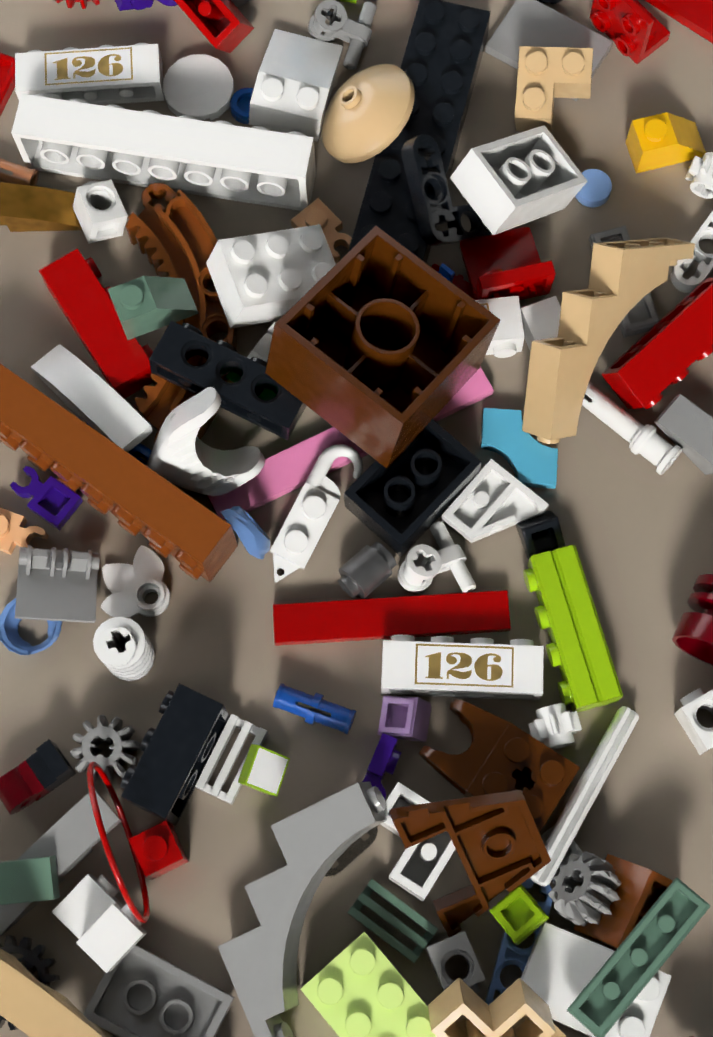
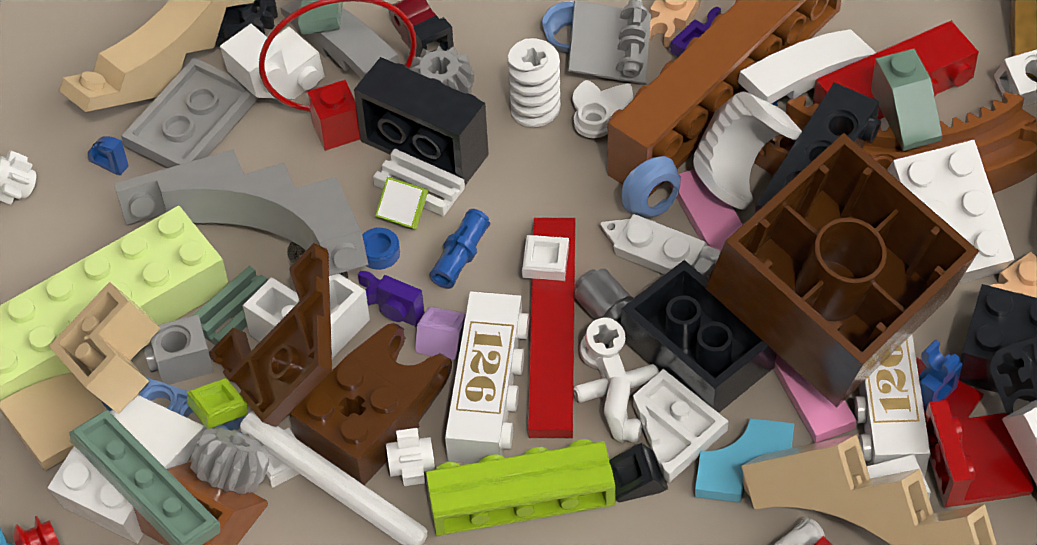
camera: 95 degrees right, 20 degrees down
(311, 787) = (381, 248): none -> blue tile
(326, 626) = (545, 257): none -> white tile
(486, 552) = (616, 412): none -> white arm

